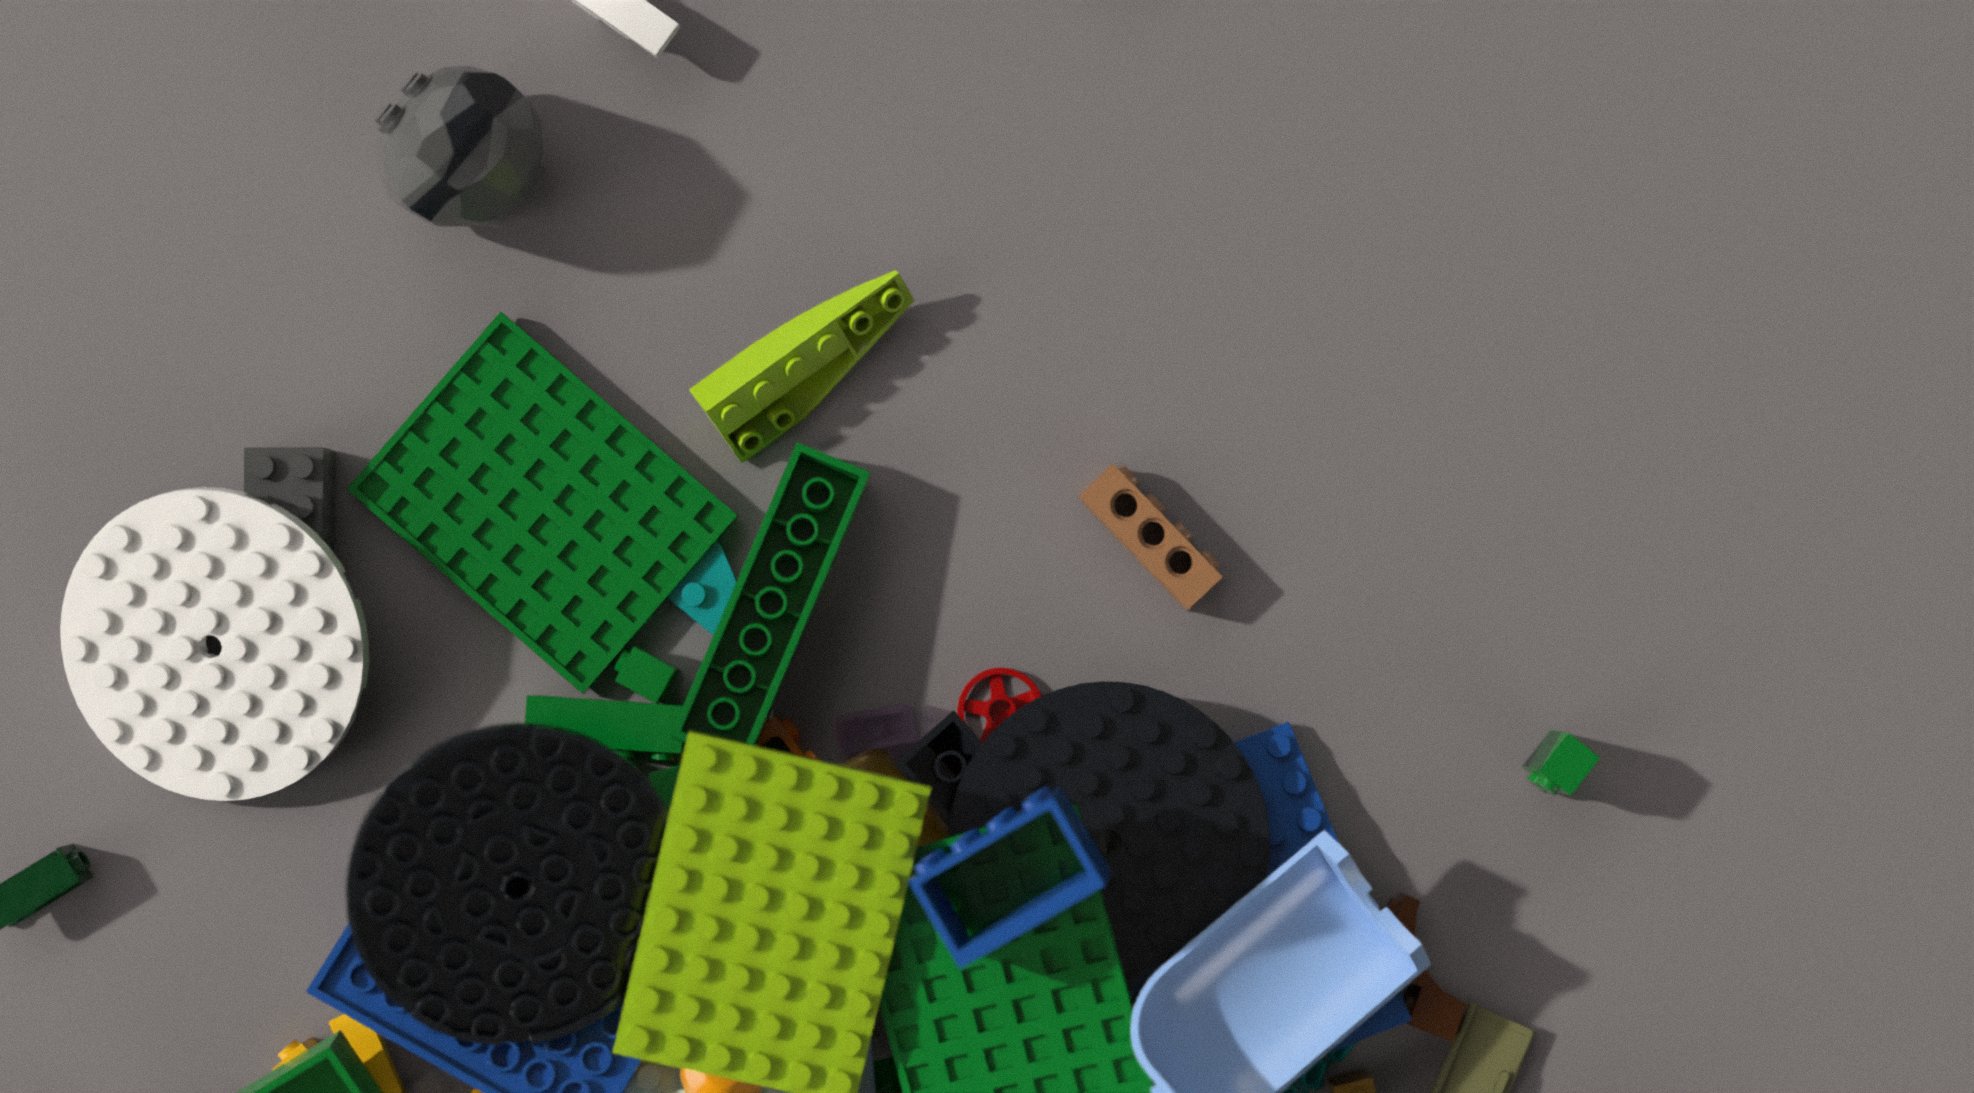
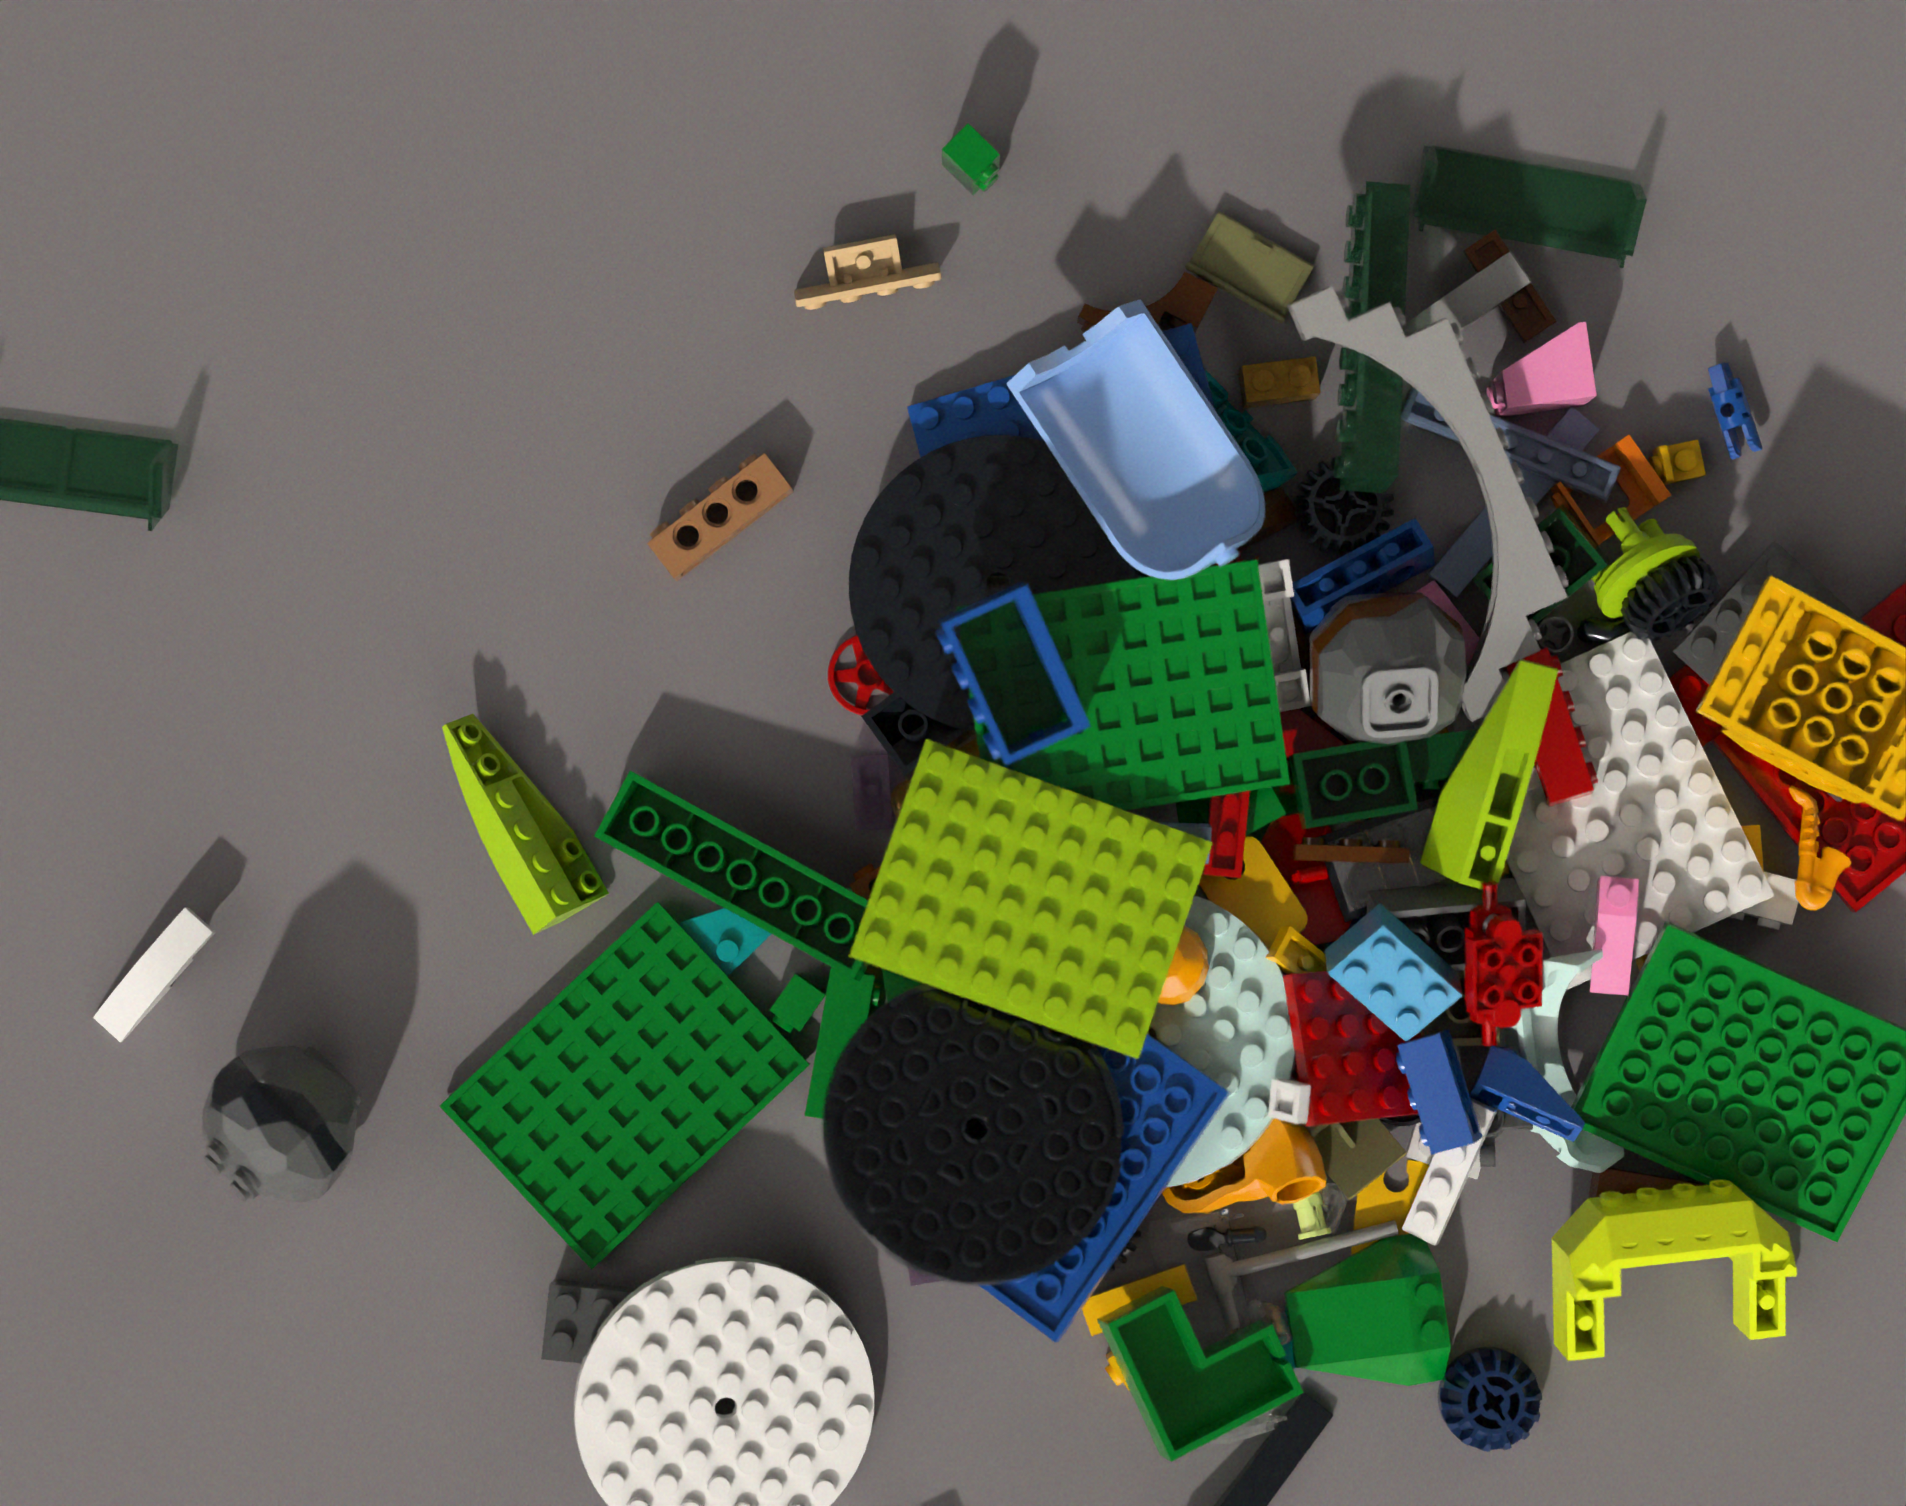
camera: 85 degrees left, 0 degrees up
(1429, 659) = (865, 269): none -> tan bracket

